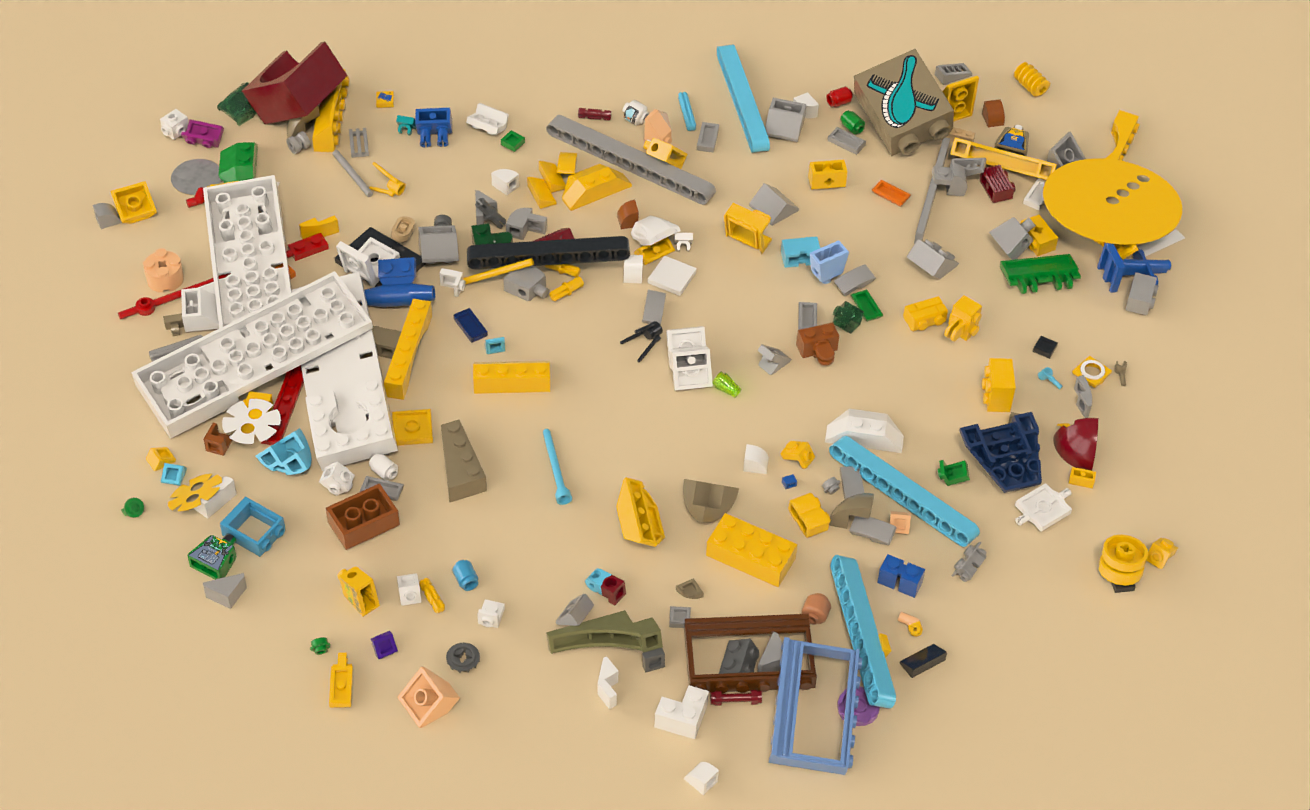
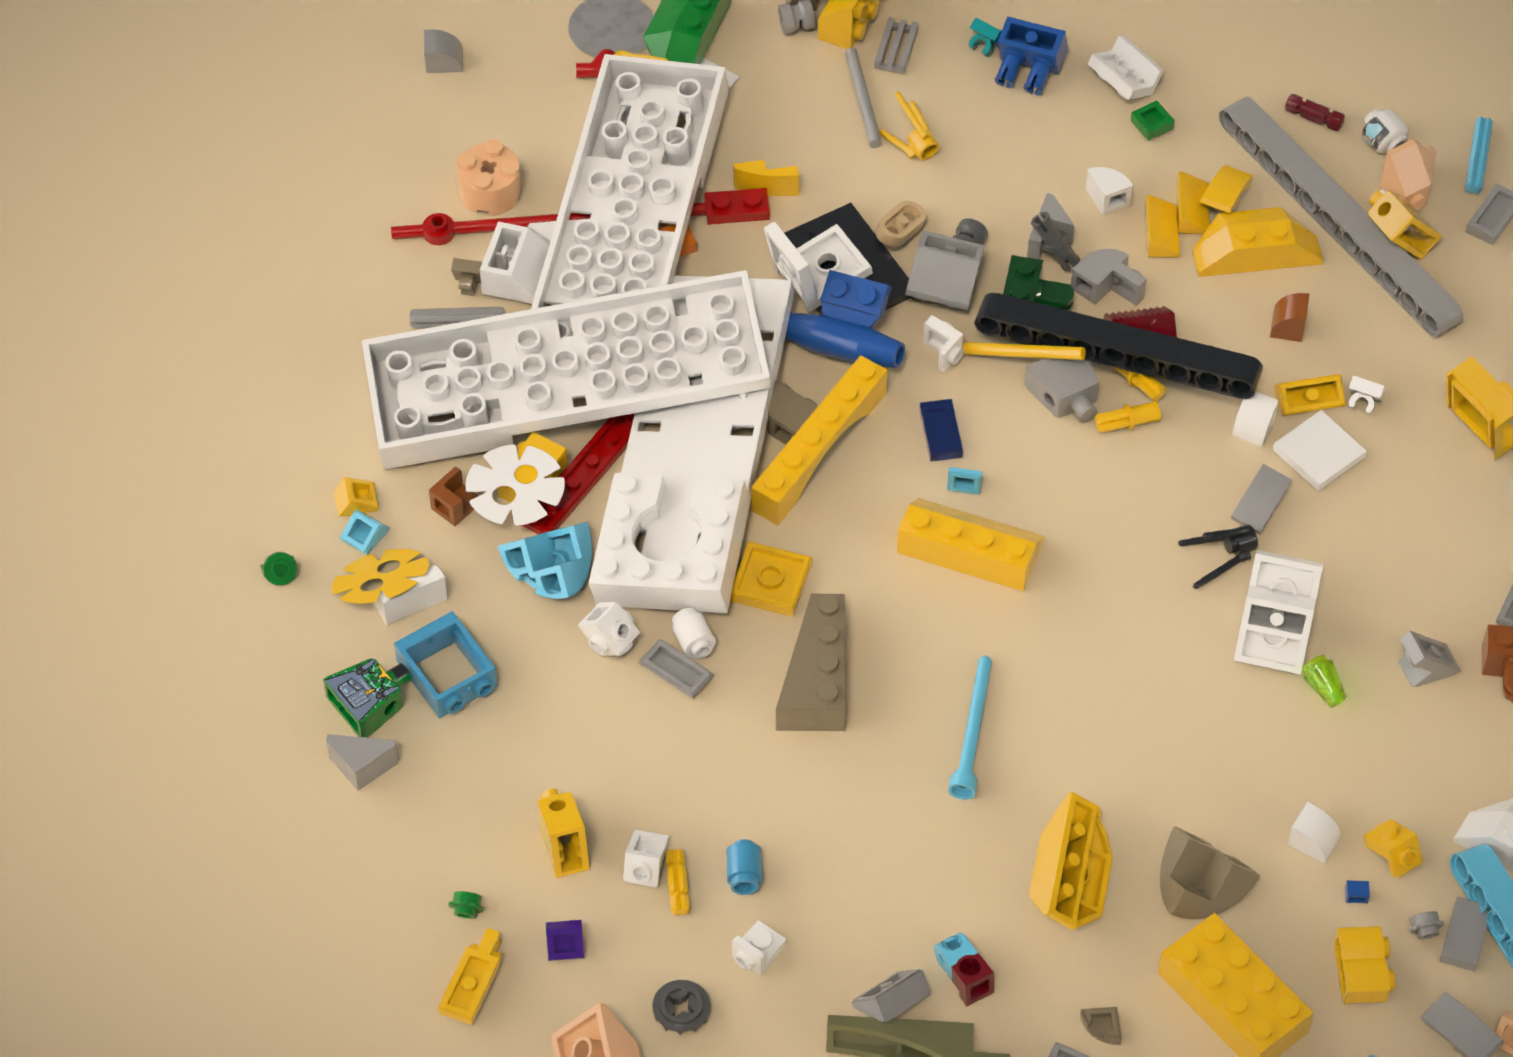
camera: 25 degrees right, 5 degrees up
(133, 203) = (491, 45): yellow slope -> none
(362, 516) = (622, 708): dark orange brick -> none
(653, 230) = (1318, 358): white slope -> none
(855, 505) = (1446, 978): dark tan brick -> none

